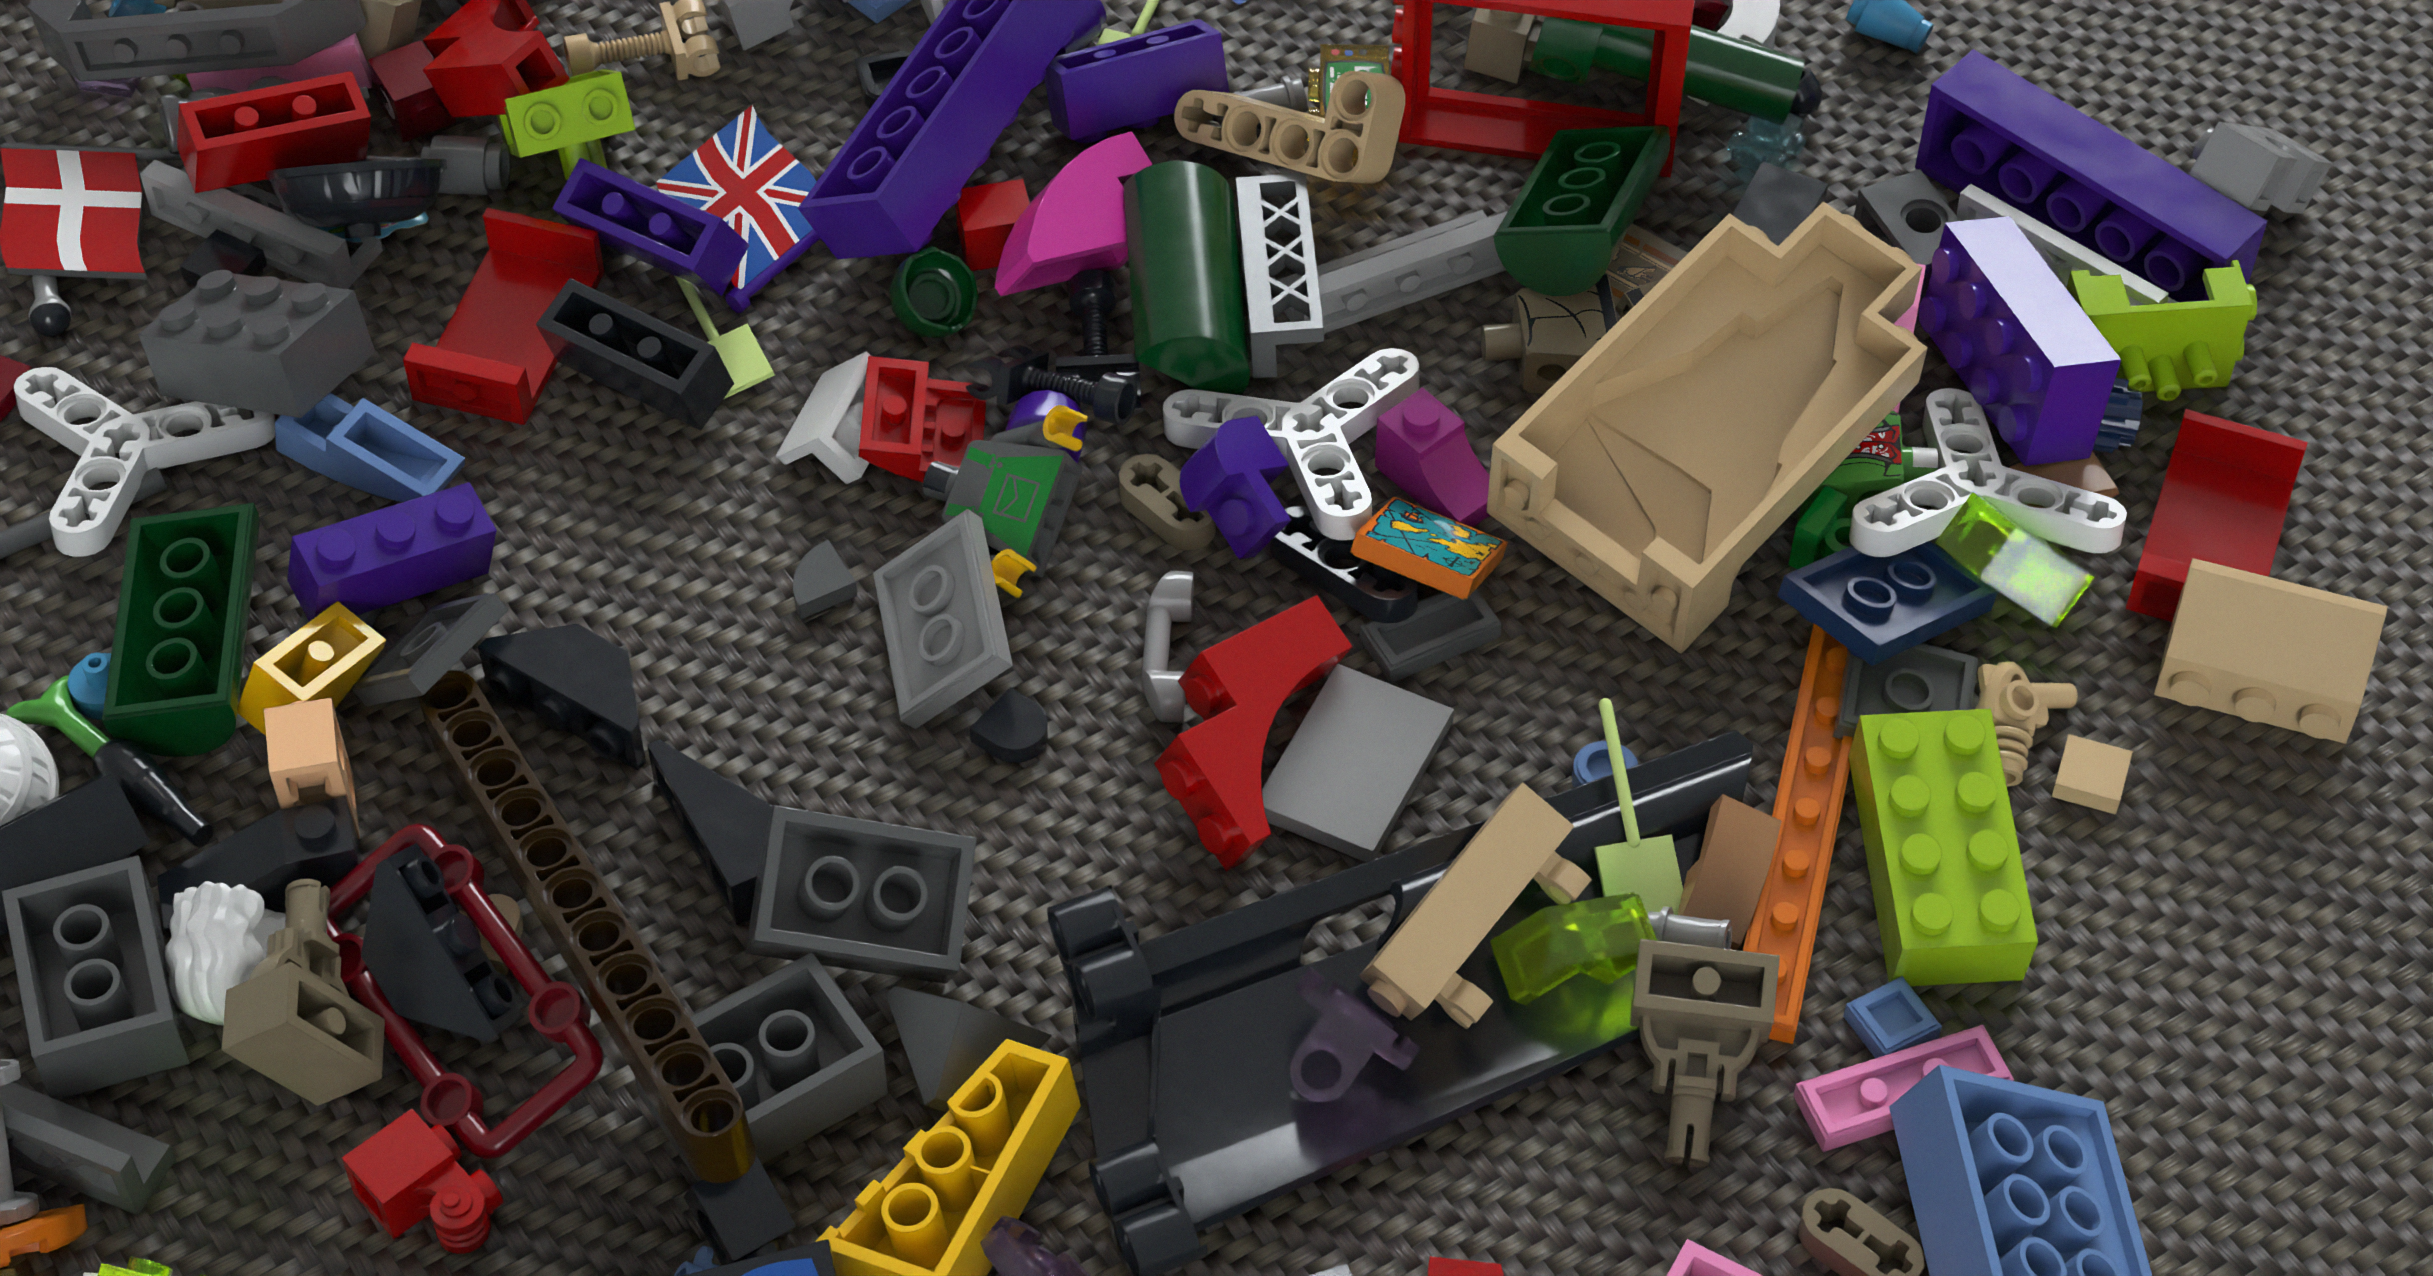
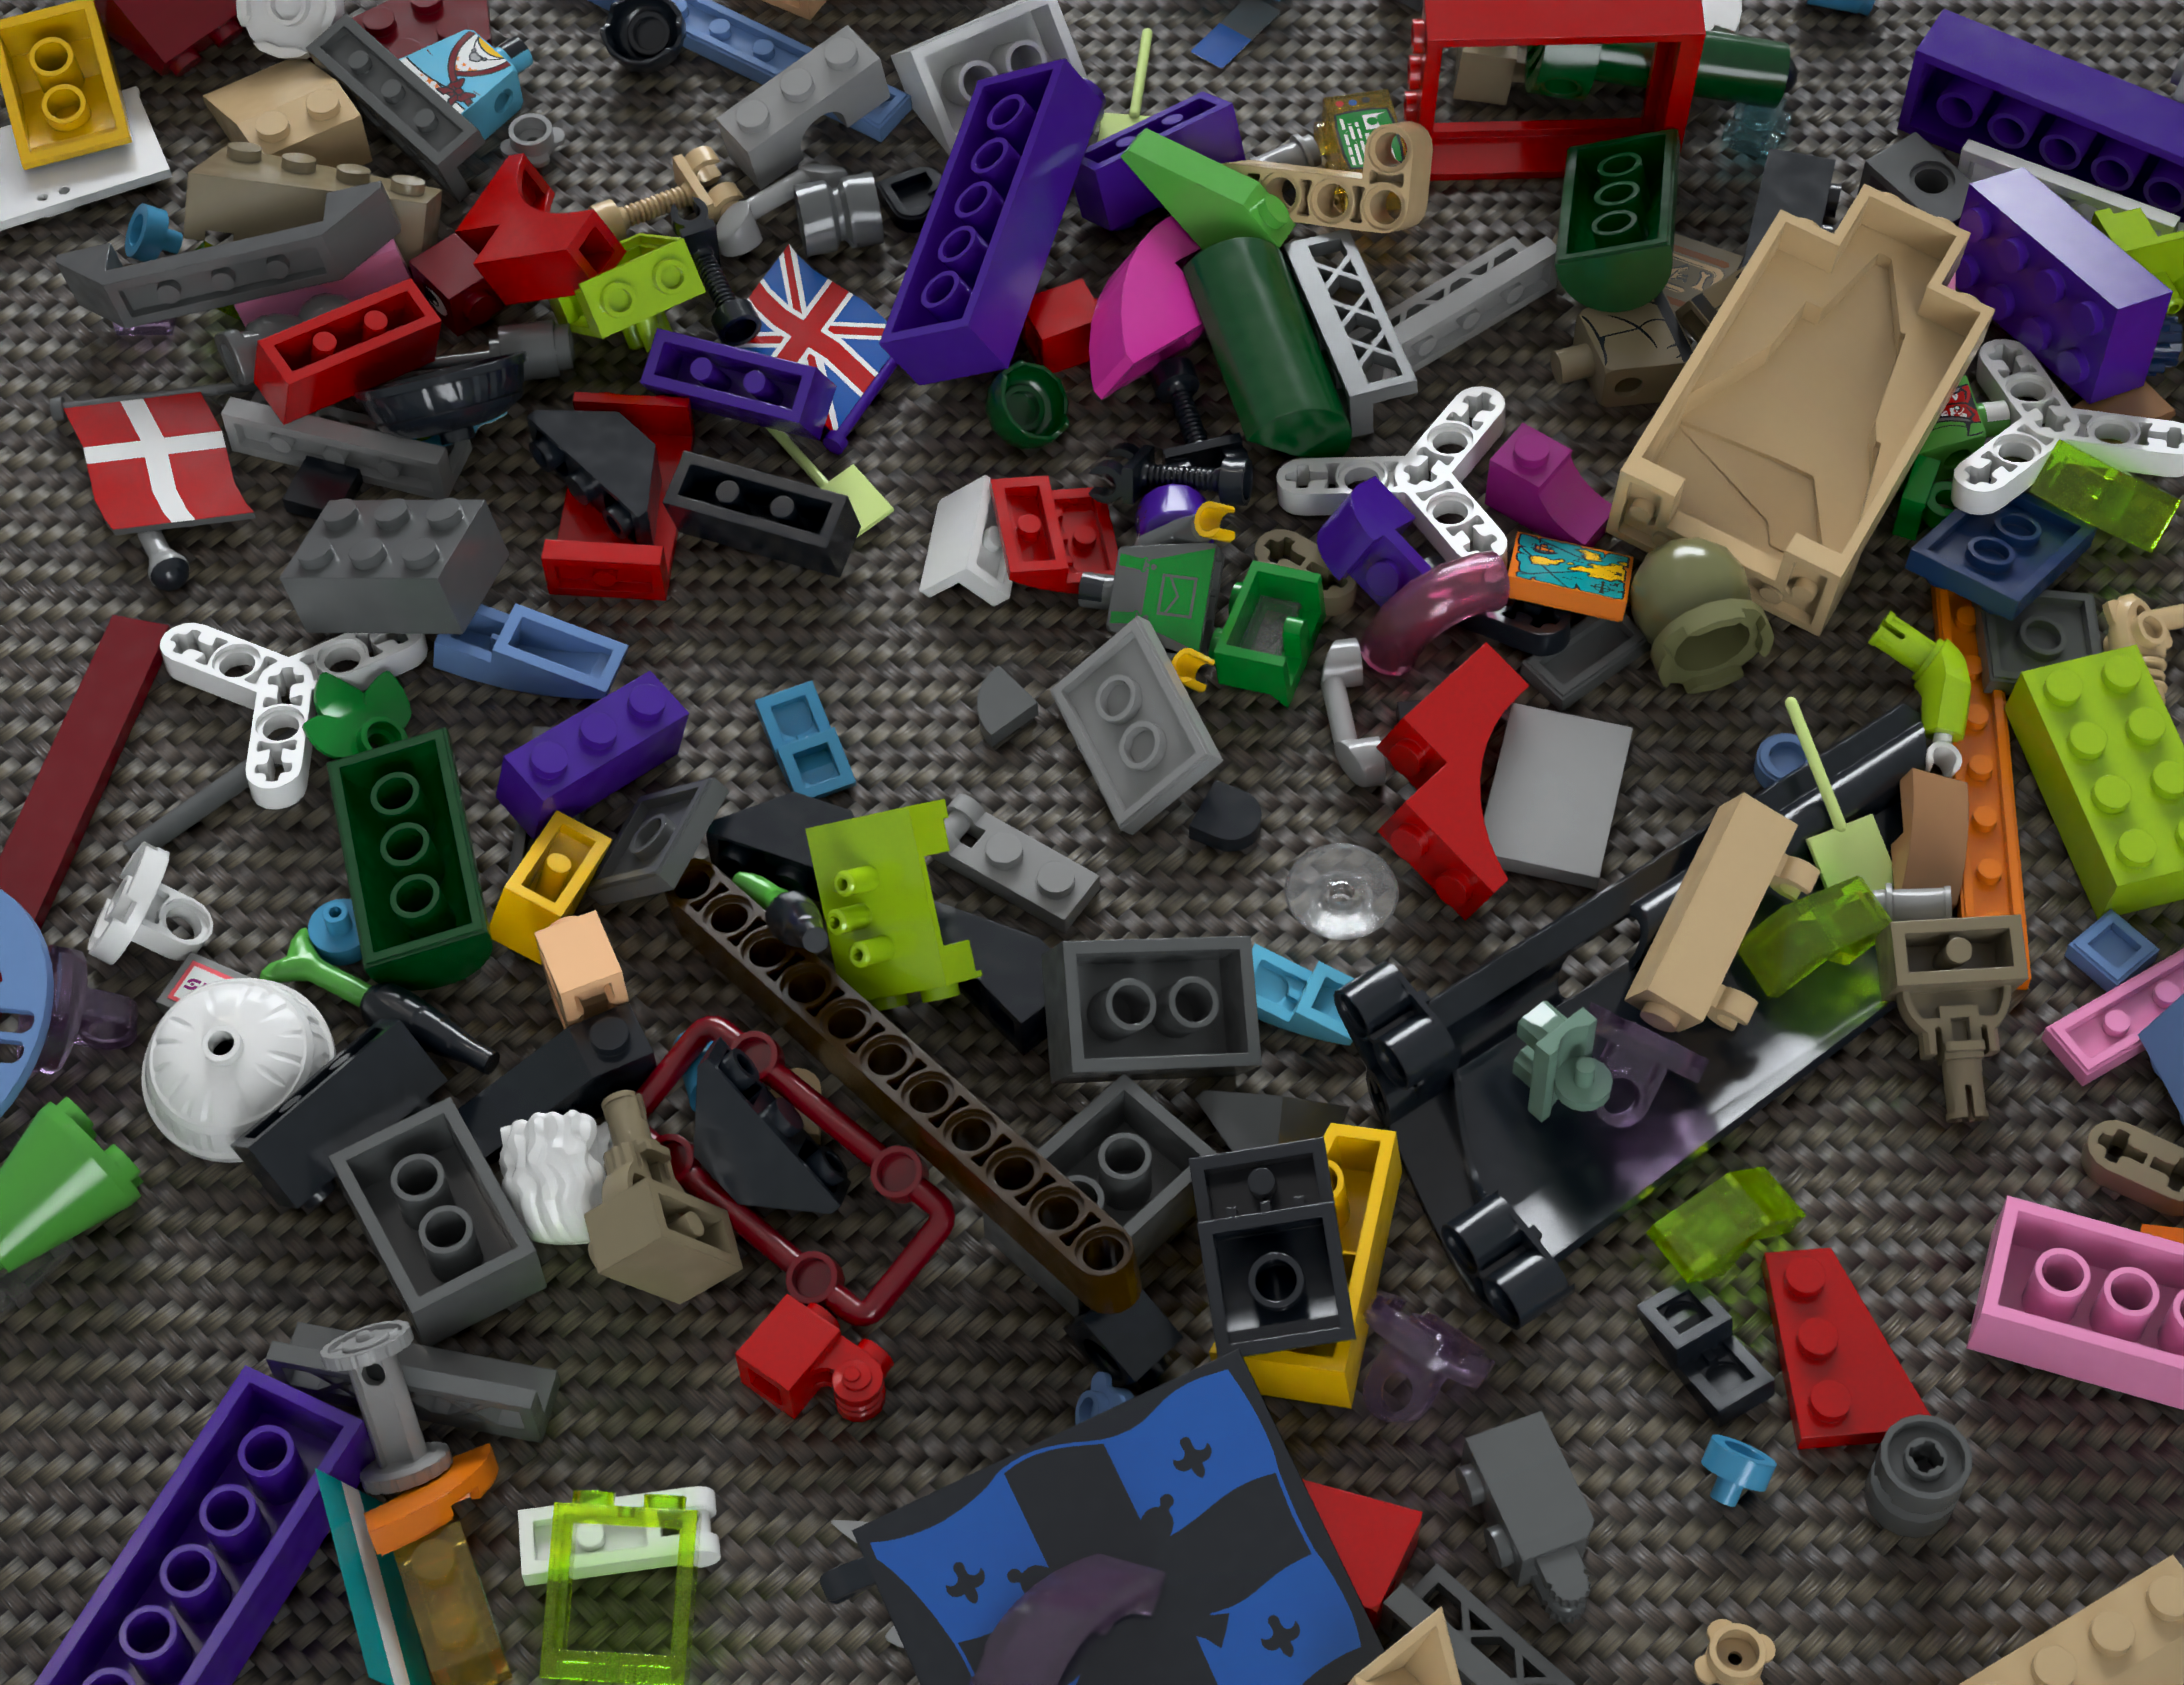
camera: 10 degrees left, 5 degrees up
(175, 482) = (355, 718): none -> green plate
(496, 282) = (603, 465): none -> black slope
(522, 735) = (788, 914): none -> black piece
(613, 581) = (804, 742): none -> dark azure slope
(615, 746) = (883, 905): none -> lime piece
(670, 165) = (734, 318): none -> black bar
(705, 80) = (738, 227): none -> light grey bar
(782, 735) = (1016, 865): none -> light grey plate
(804, 81) = (838, 214): none -> dark grey wheel
(901, 1148) = (1272, 1248): none -> black slope
(1015, 910) = (1299, 997): none -> medium azure slope
(1096, 800) = (1346, 873): none -> clear piece
(1110, 551) = (1269, 630): none -> green window
(1166, 115) = (1206, 195): none -> bright green slope
(1263, 1020) = (1560, 1061): none -> sand green hips
(1273, 550) = (1431, 606): none -> clear pink cylinder
(1385, 1218) = (1723, 1221): none -> clear neon green slope
(1546, 607) = (1698, 614): none -> olive tile
(1783, 718) = (1941, 681): none -> lime arm

